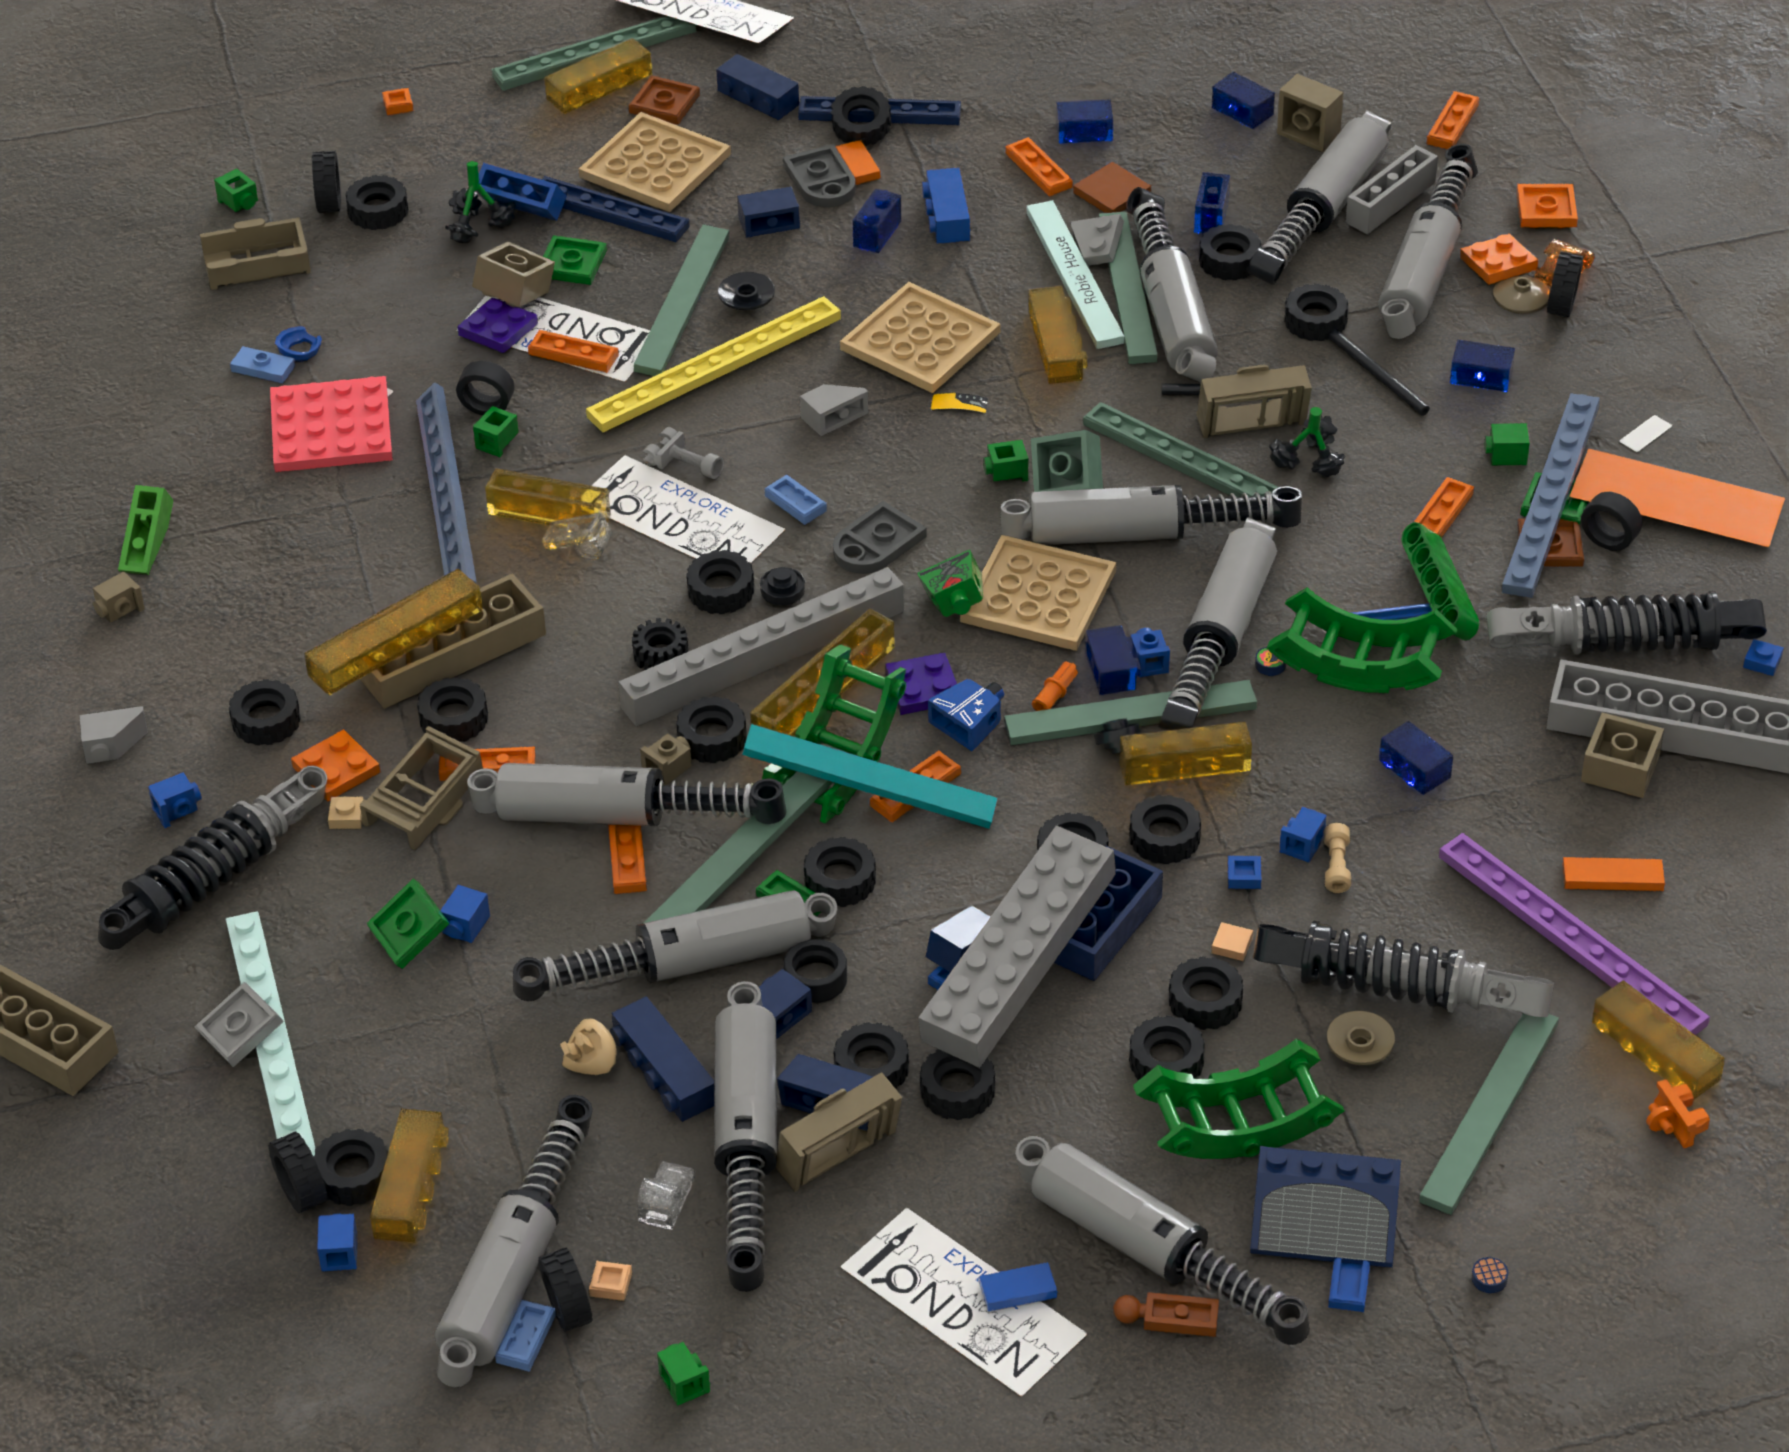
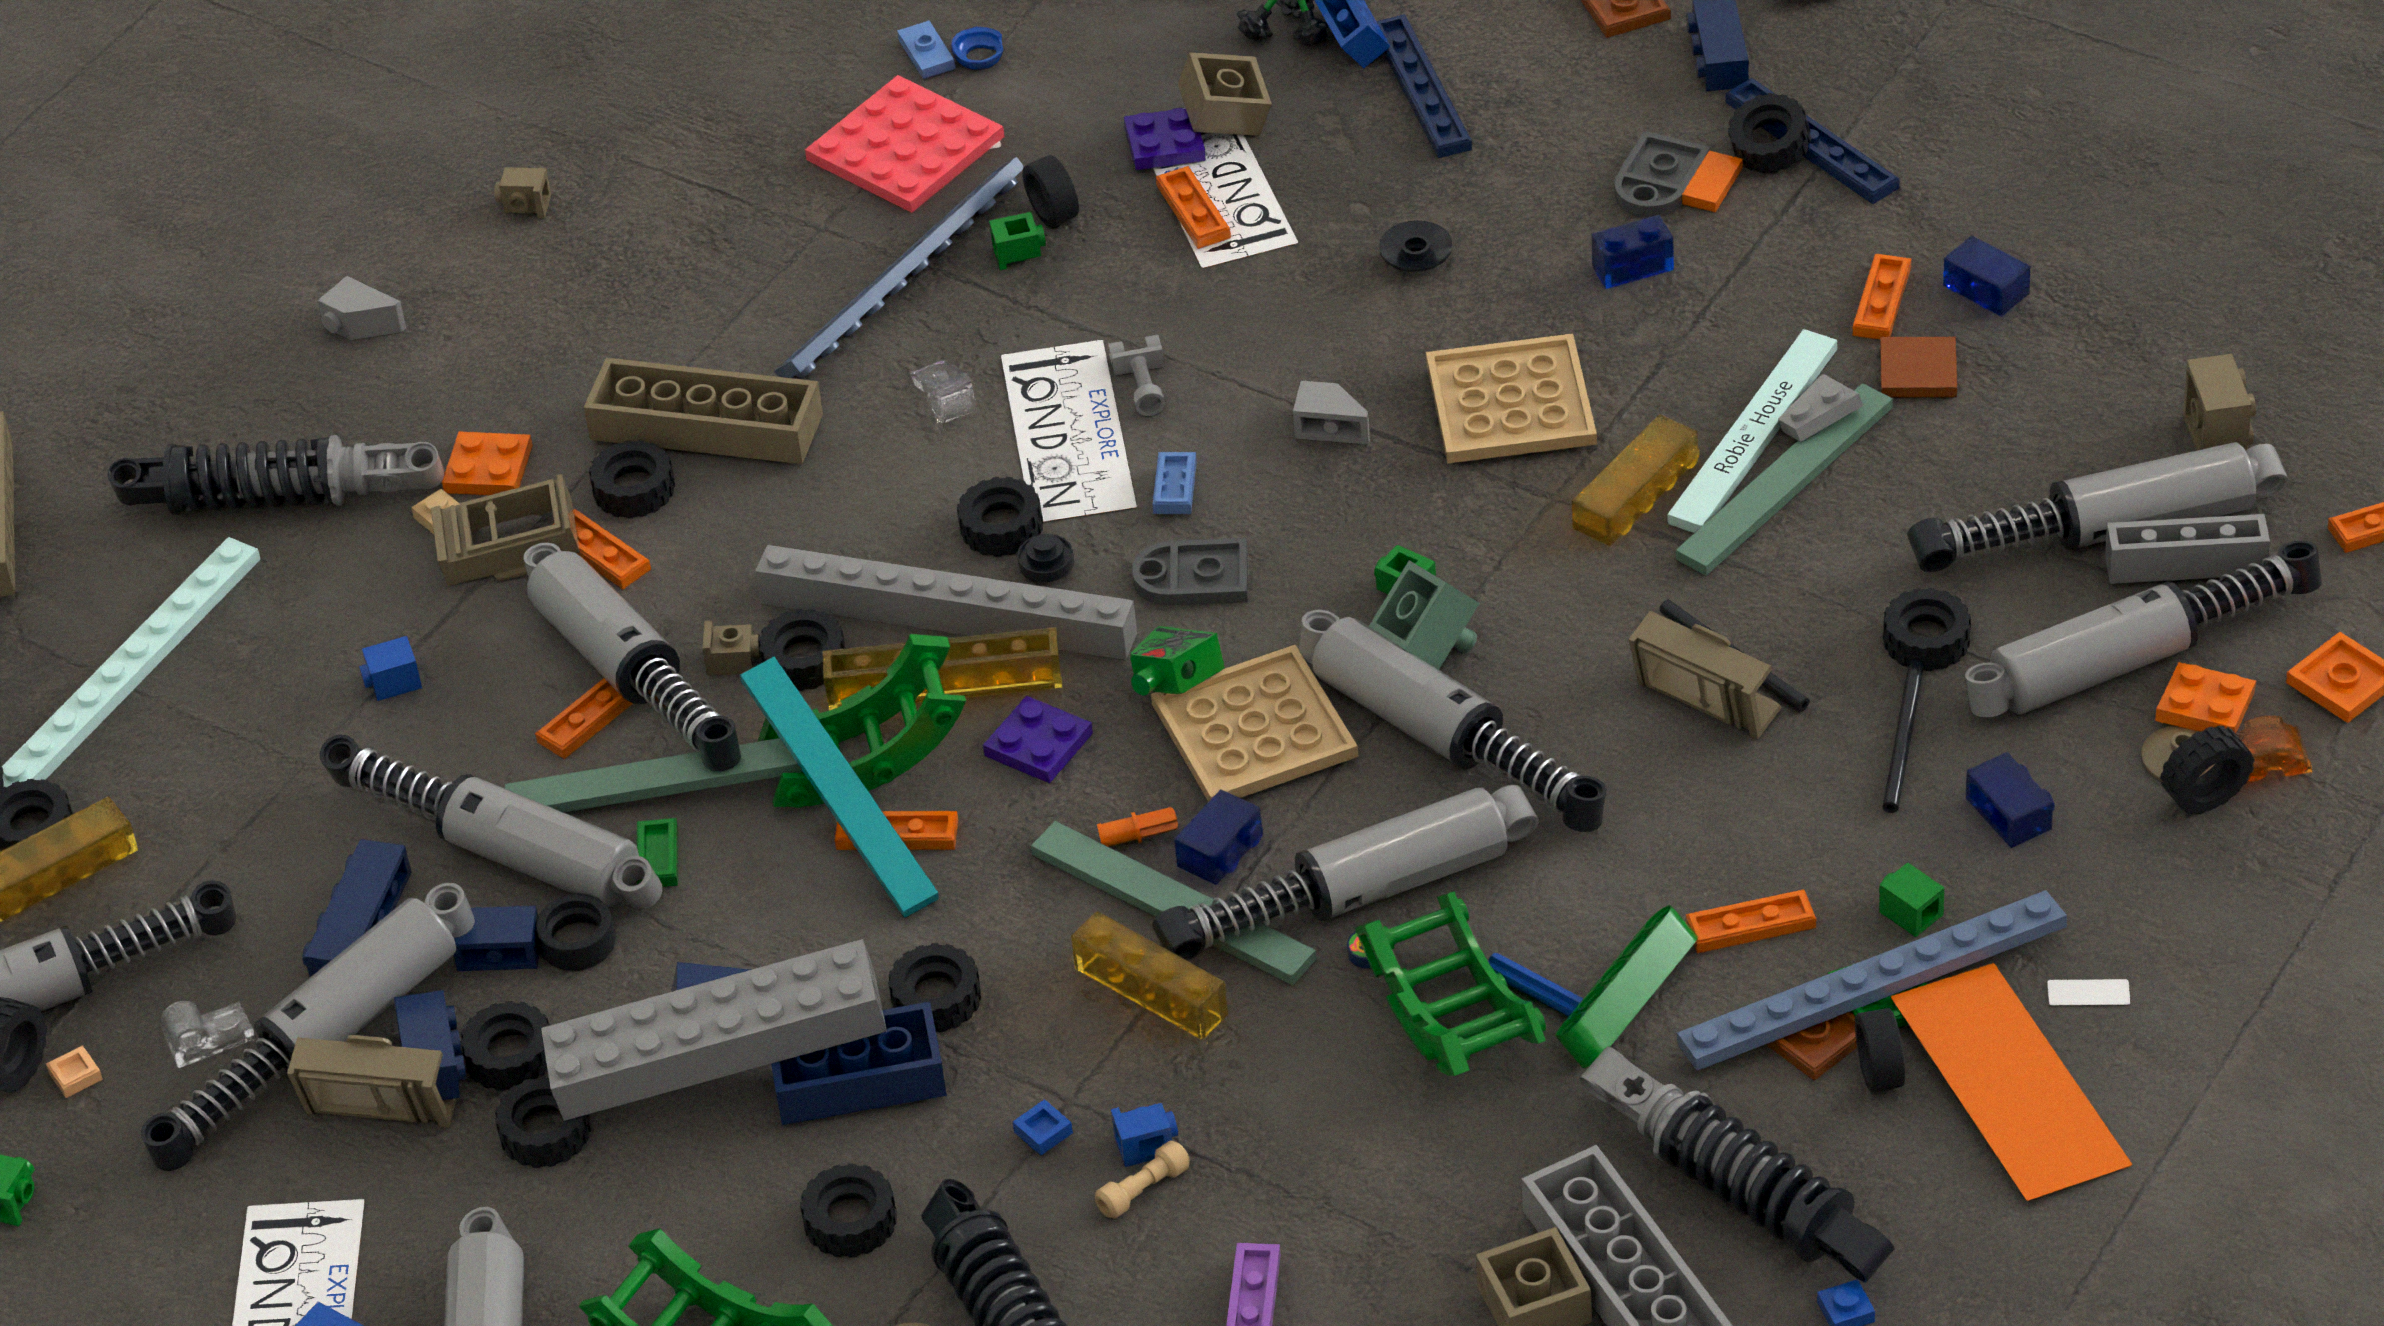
camera: 50 degrees right, 0 degrees up
(145, 529) = (626, 142): bright green slope -> none
(174, 798) = (326, 402): blue brick -> none
(239, 1024) = (110, 634): light grey tile -> none
(264, 694) = (496, 395): black tyre -> none
(393, 631) = (640, 366): clear yellow brick -> none
(407, 923) = (336, 642): green tile -> none
(542, 498) = (956, 334): clear yellow brick -> none
(575, 259) = (1317, 115): green tile -> none
(590, 1049) = (313, 860): tan piece -> none
(654, 162) = (1521, 62): tan plate -> none
(655, 634) = (871, 526): black tyre -> none
(681, 301) = (1354, 218): sand green tile -> none
(712, 364) = (1293, 300): light yellow plate -> none
(768, 212) = (1548, 178): dark blue brick -> none
(846, 852) = (724, 882): black tyre -> none
(946, 205) = (1724, 279): blue brick -> none
(959, 401) = (1463, 490): yellow sticker -> none
(967, 711) = (1028, 793): blue torso -> none
(1113, 730) = (1119, 907): black plate -> none
(1149, 645) = (1270, 849): blue brick -> none
(1165, 849) = (1041, 1058): black tyre -> none
(1166, 1031) = (732, 1210): black tyre -> none
(1172, 291) = (1799, 509): light grey piece -> none
(1174, 452) = (1586, 689): sand green tile -> none
(1211, 201) = (1977, 443): clear blue brick -> none
(1228, 237) = (1926, 487): black tyre -> none
(1232, 941) = (932, 1176): light nougat tile -> none
(1243, 100) = (2178, 341): clear blue brick -> none
(1318, 432) = (1680, 754): black plant -> none
(1415, 758) = (1348, 1141): clear blue brick -> none

